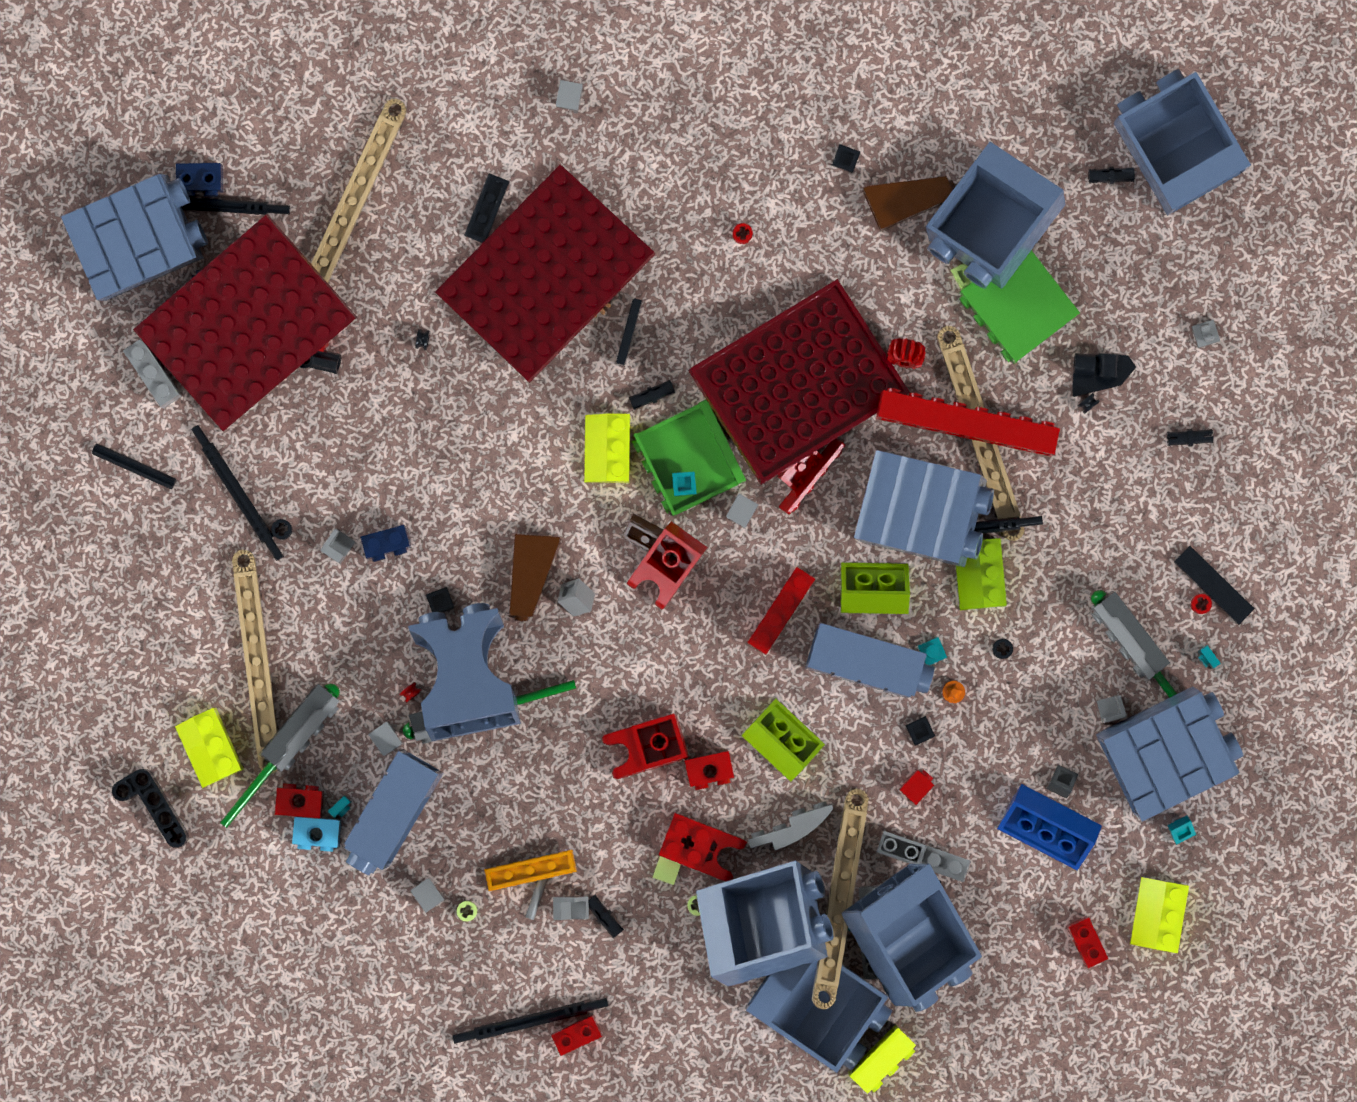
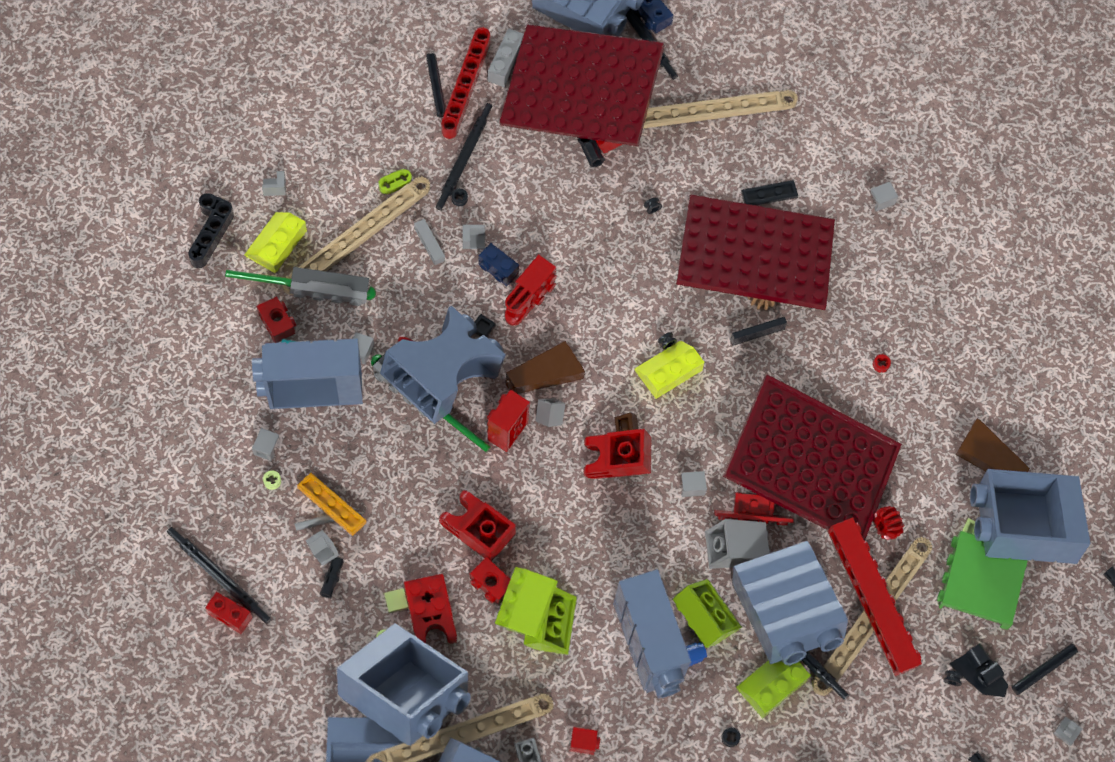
camera: 45 degrees right, 20 degrees down
(143, 709) = (275, 186): none -> light grey panel
(144, 429) = (465, 90): none -> red beam
(214, 582) = (395, 181): none -> lime beam
(302, 833) = (257, 334): medium azure brick -> none
(312, 593) = (429, 242): none -> light grey piece
(437, 531) = (530, 290): none -> red brick
(564, 650) = (507, 420): none -> red brick
(578, 429) = (667, 340): none -> black bush
(651, 395) = (727, 374): black pin -> none
(684, 483) = (683, 431): teal plate -> none
(689, 444) = (701, 426): bright green panel -> none
(755, 754) = (526, 602): none -> lime slope
(781, 611) = (642, 556): red brick -> none
(801, 825) = (496, 674): light grey slope -> none
(830, 512) = (736, 542): none -> light grey slope
(846, 158) = (985, 399): black tile -> none
(904, 631) = (696, 653): none -> blue brick
(920, 730) = (627, 717): black tile -> none
(934, 651) = (691, 686): teal plate -> none
(953, 691) = (673, 722): orange tile -> none
(1137, 310) = (1044, 669): none -> black axle

